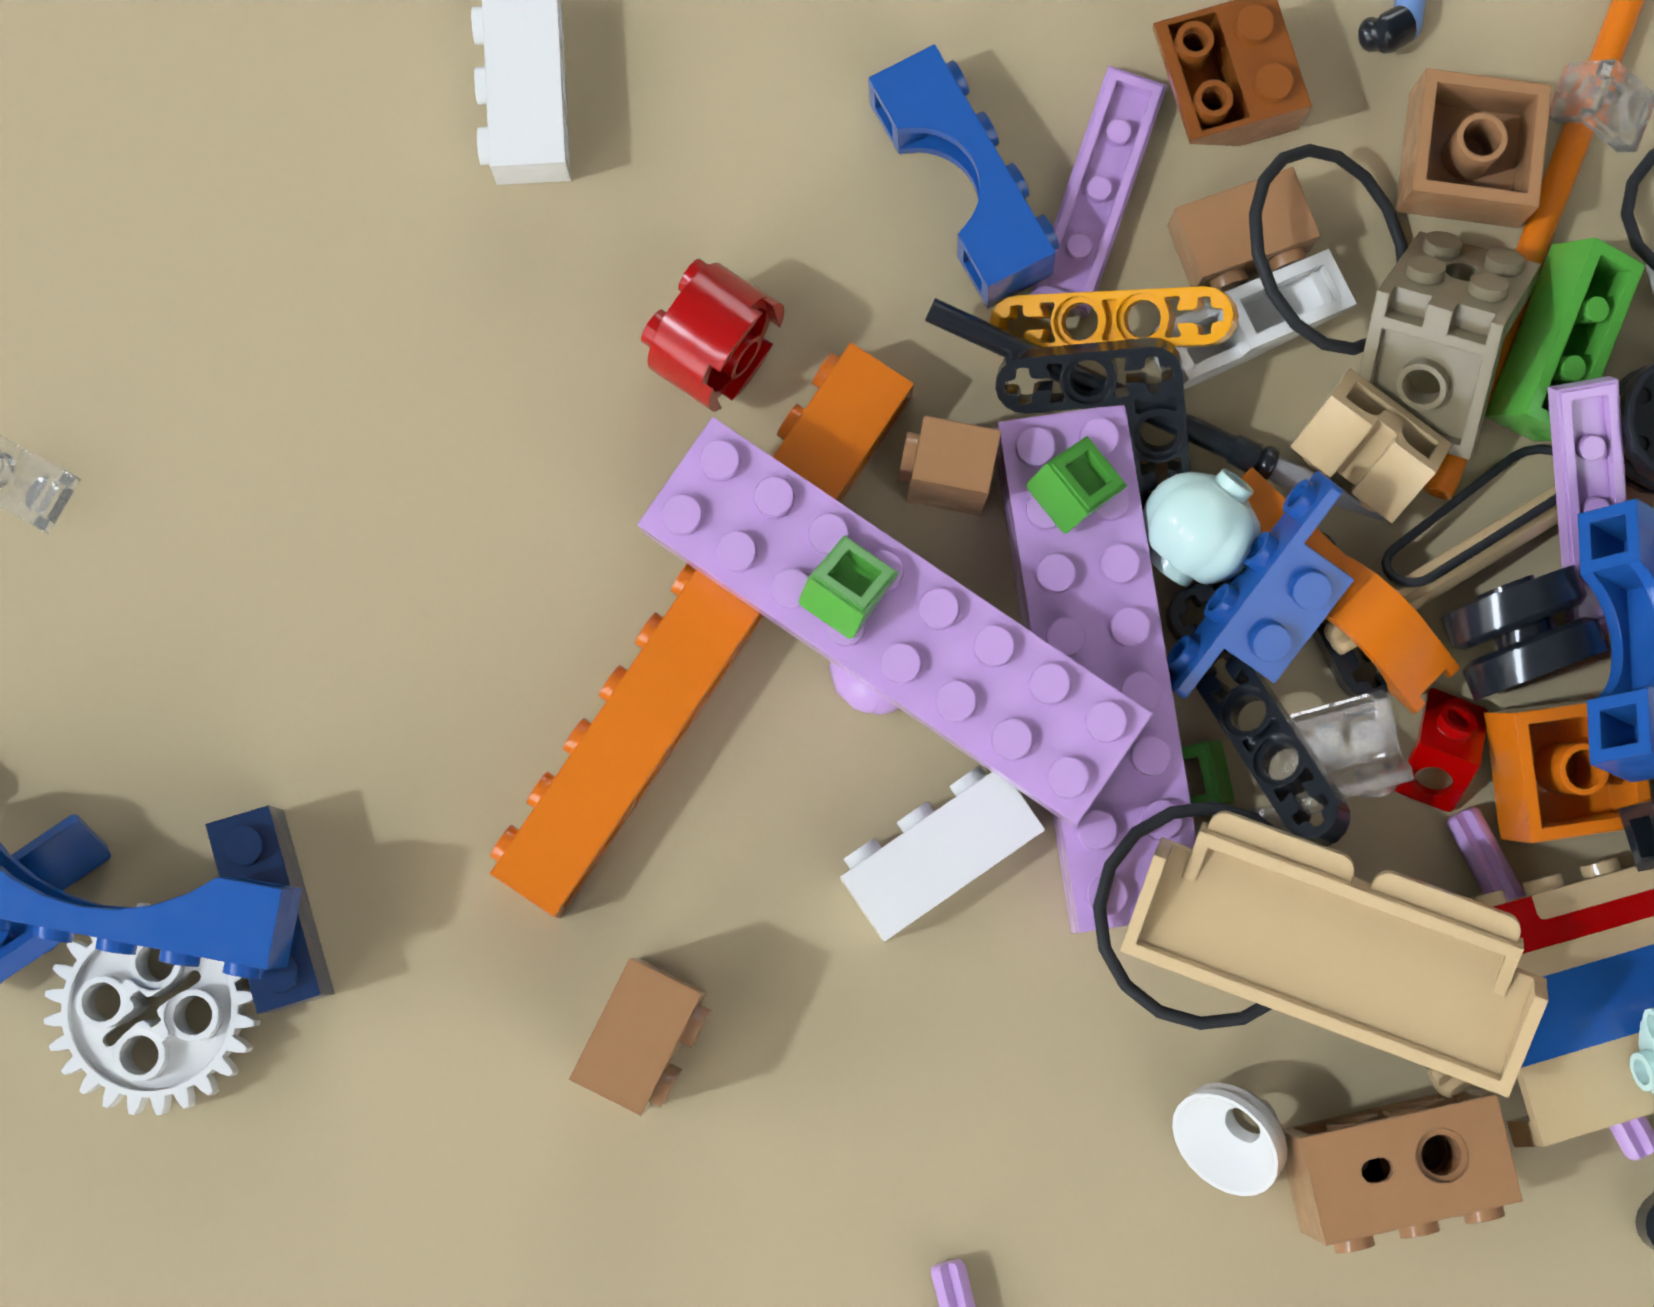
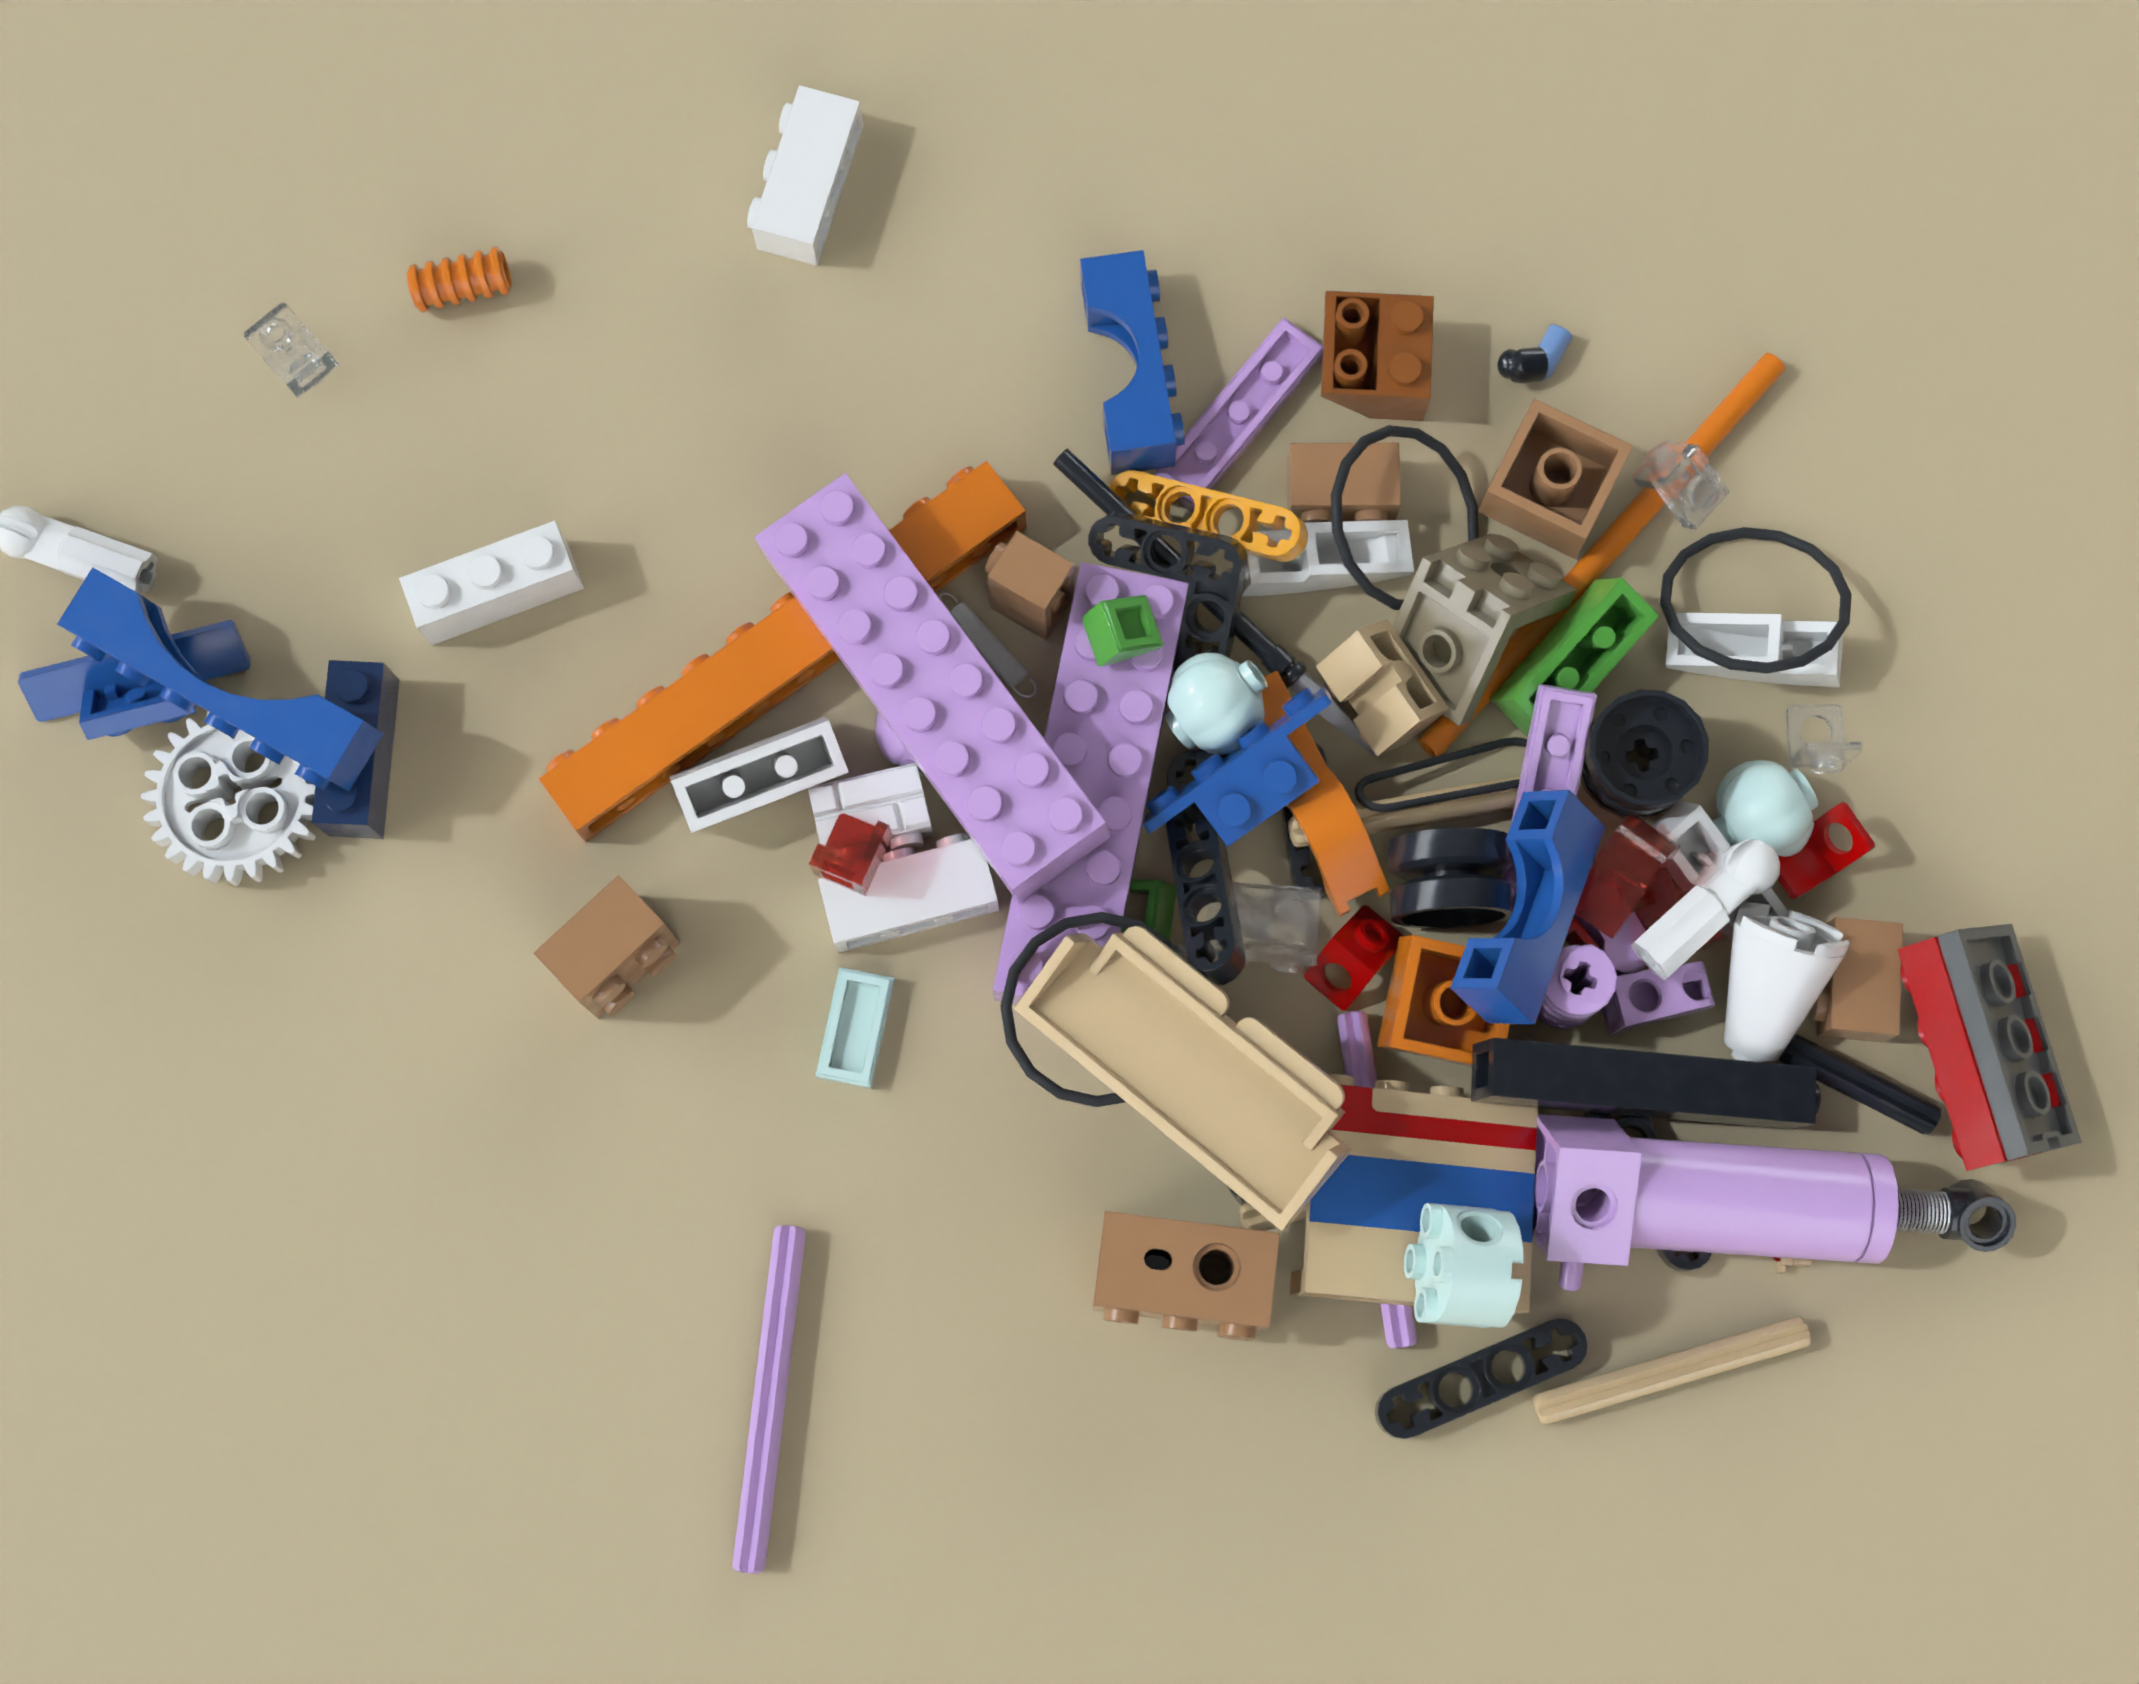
camera: 25 degrees right, 5 degrees down
(178, 335) = (459, 279): none -> orange piece
(349, 669) = (491, 583): none -> white brick
(711, 334) = (878, 417): red brick -> none
(730, 781) = (758, 774): none -> white brick
(847, 587) = (897, 637): bright green slope -> none
(866, 778) = (883, 795): none -> white brick
(870, 835) = (851, 853): none -> clear red panel
(926, 546) = (989, 646): none -> white piece
(934, 1019) = (855, 1028): none -> light aqua tile
(1221, 1148) = (1048, 1208): white piece -> none

